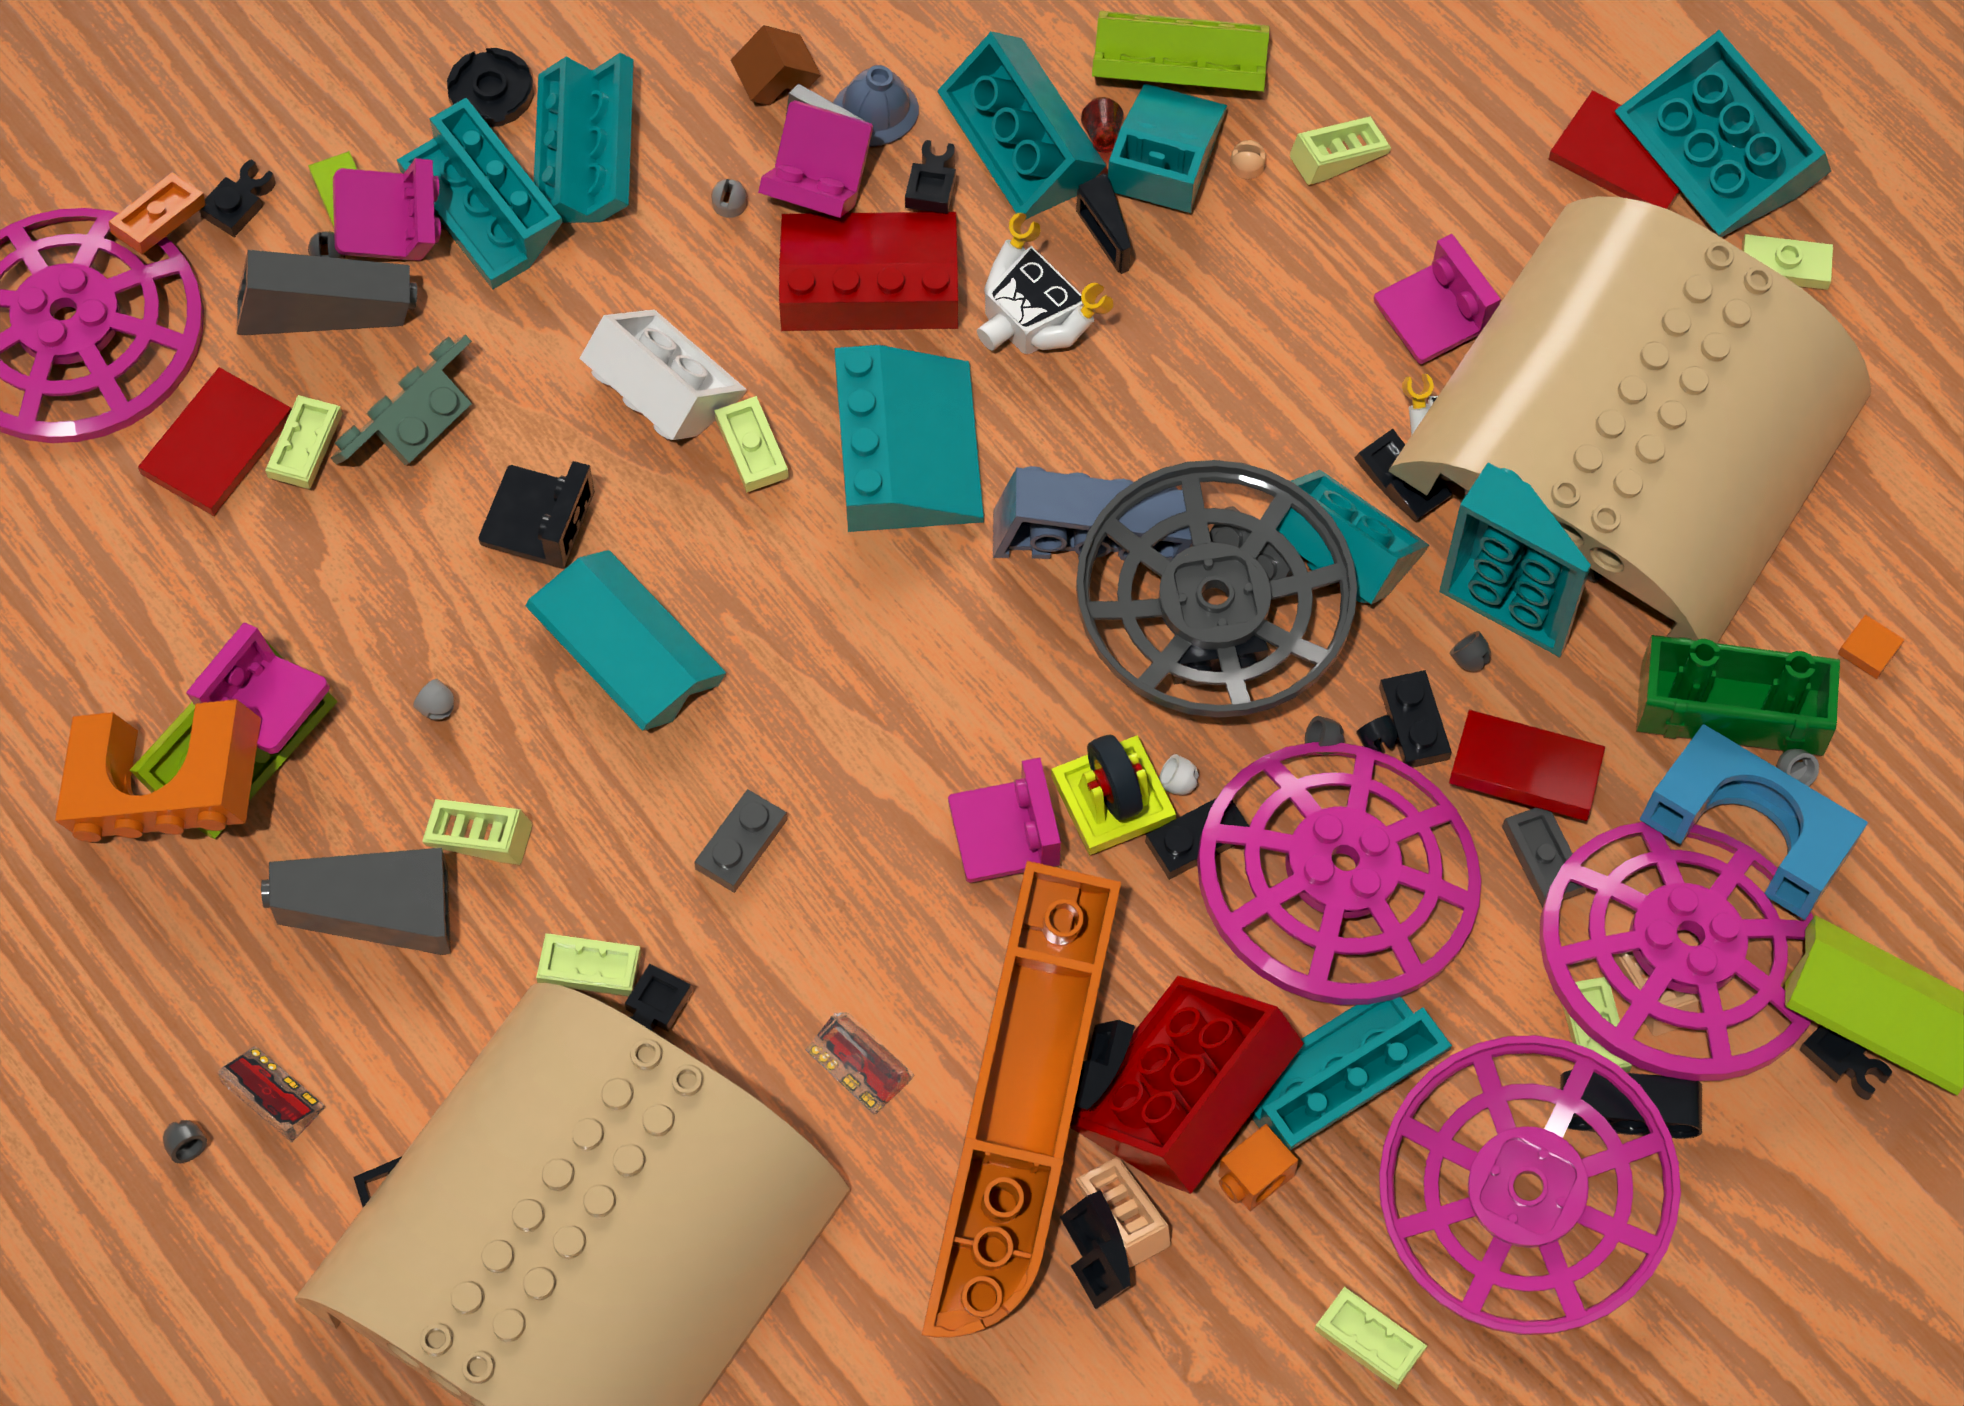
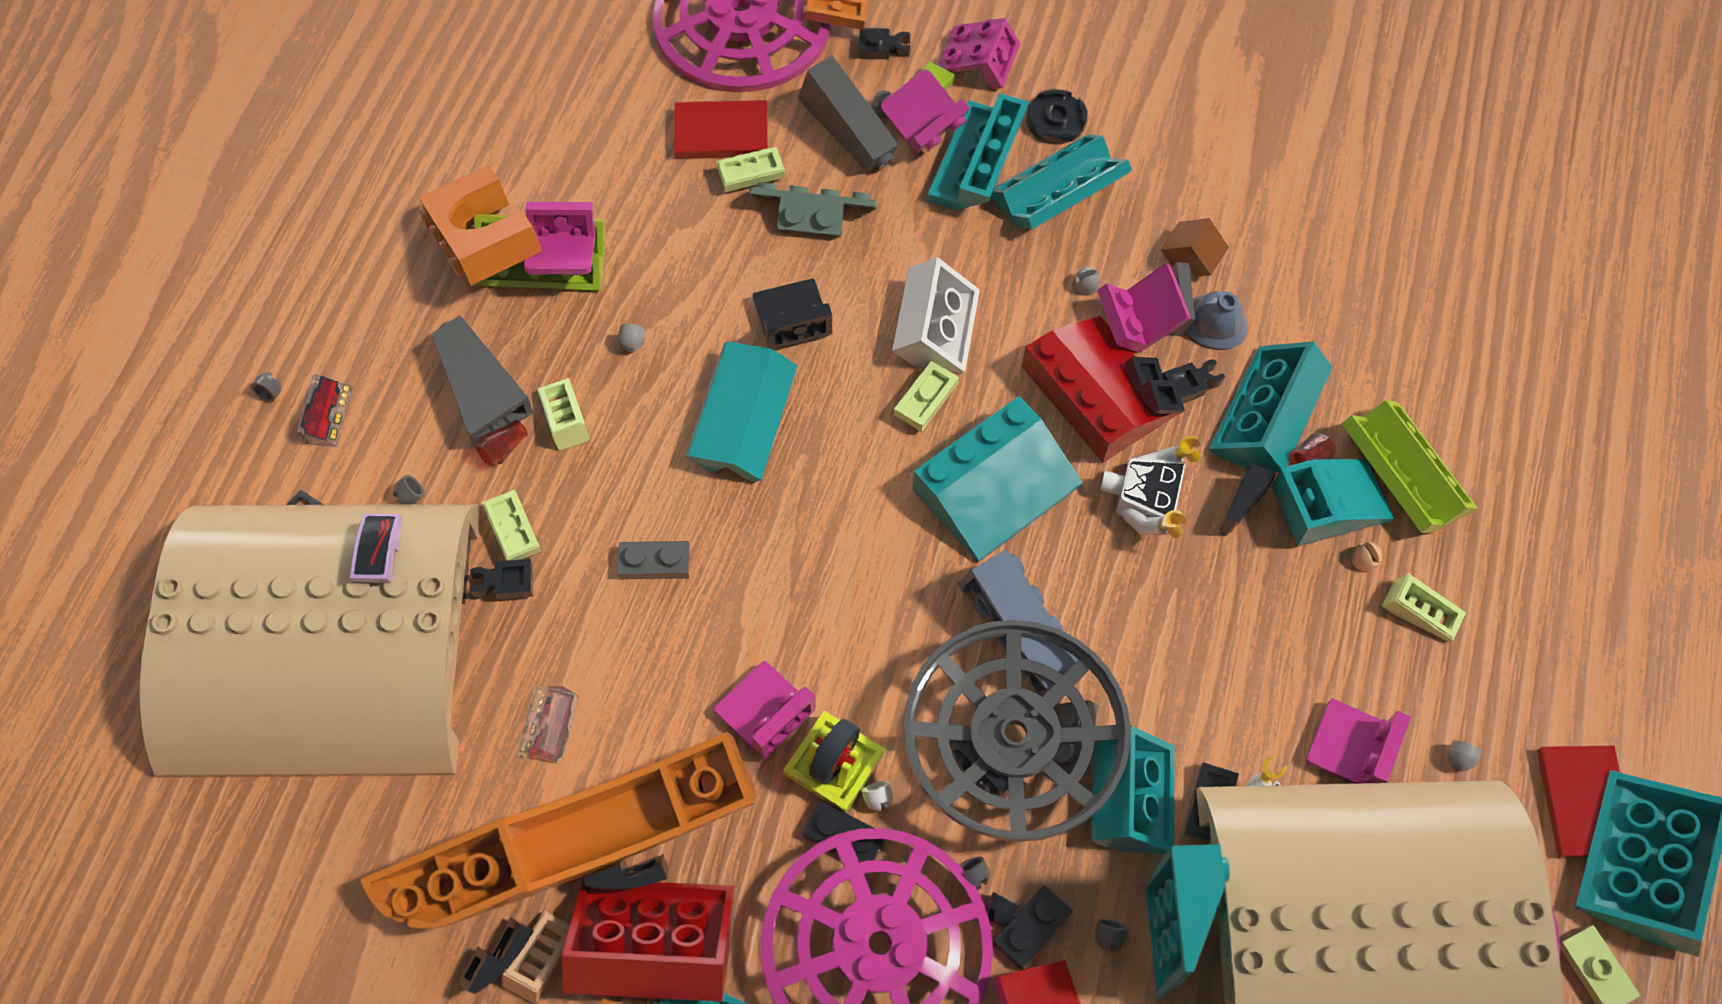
camera: 55 degrees right, 0 degrees up
(336, 104) = (982, 46): none -> dark pink bracket
(454, 1051) = (408, 490): none -> dark grey hinge
(469, 919) = (499, 444): none -> clear red cone
(556, 1086) = (375, 548): none -> slope
(930, 218) = (1155, 391): none -> black slope
(1512, 222) = (1464, 755): none -> light grey hinge

